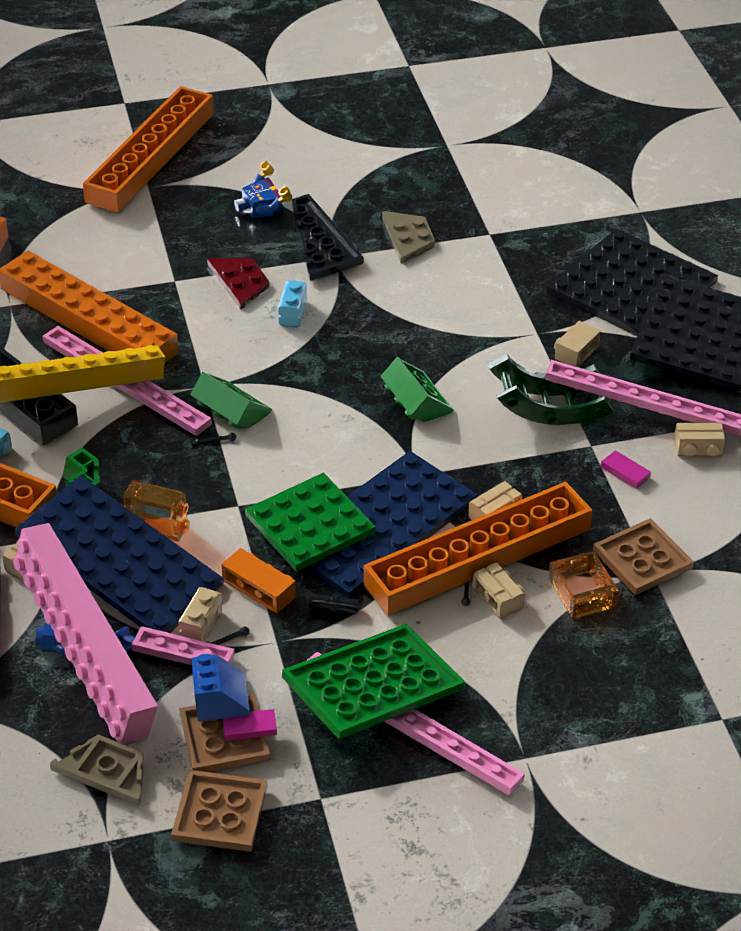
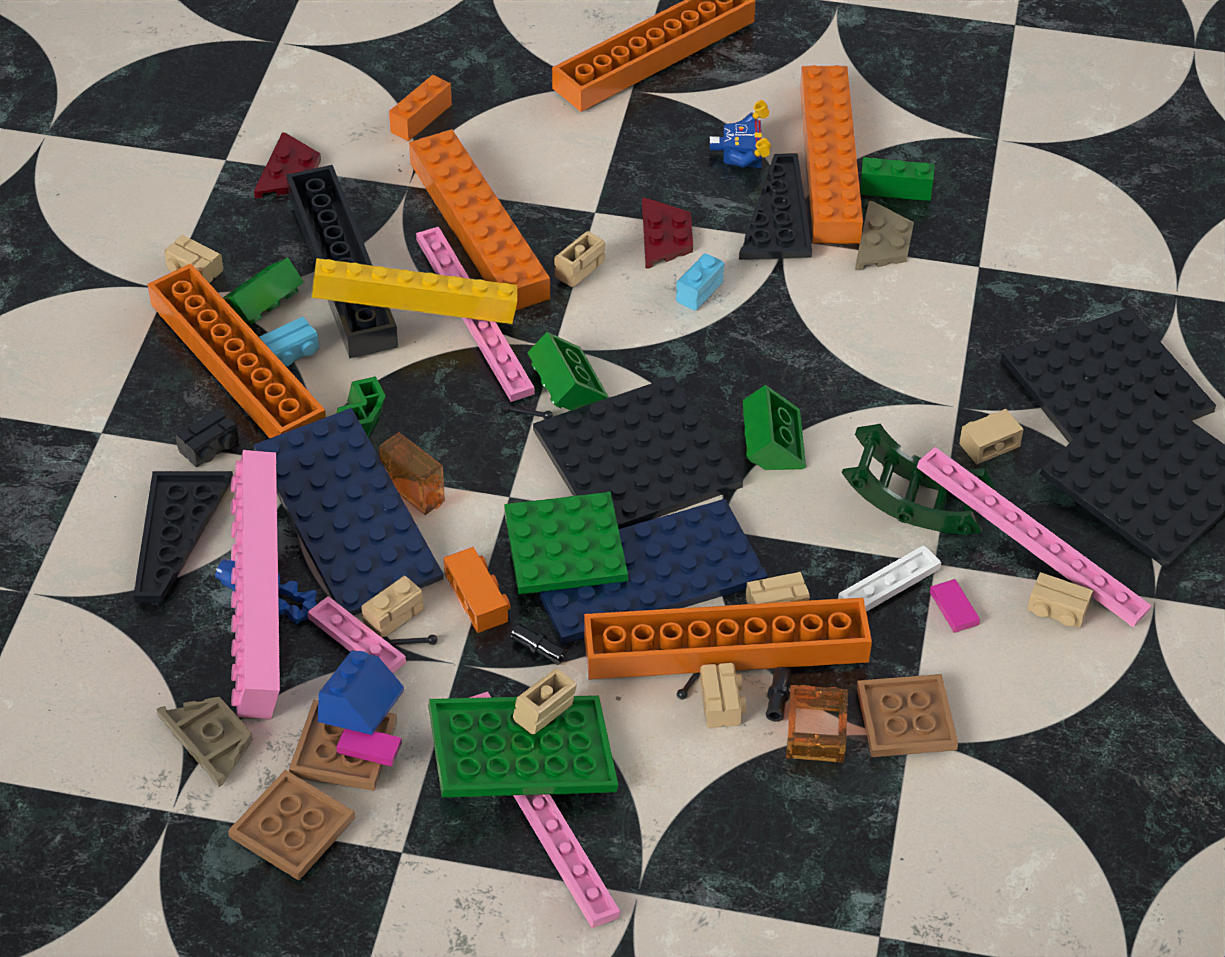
camera: 25 degrees right, 5 degrees up
(189, 314) = (579, 259): none -> tan brick
(320, 433) = (642, 449): none -> black plate
(334, 187) = (830, 155): none -> orange brick
(377, 637) = (544, 701): none -> tan brick
(393, 190) = (897, 179): none -> green slope
(540, 575) = (778, 694): none -> black pin
(572, 462) = (894, 578): none -> white plate

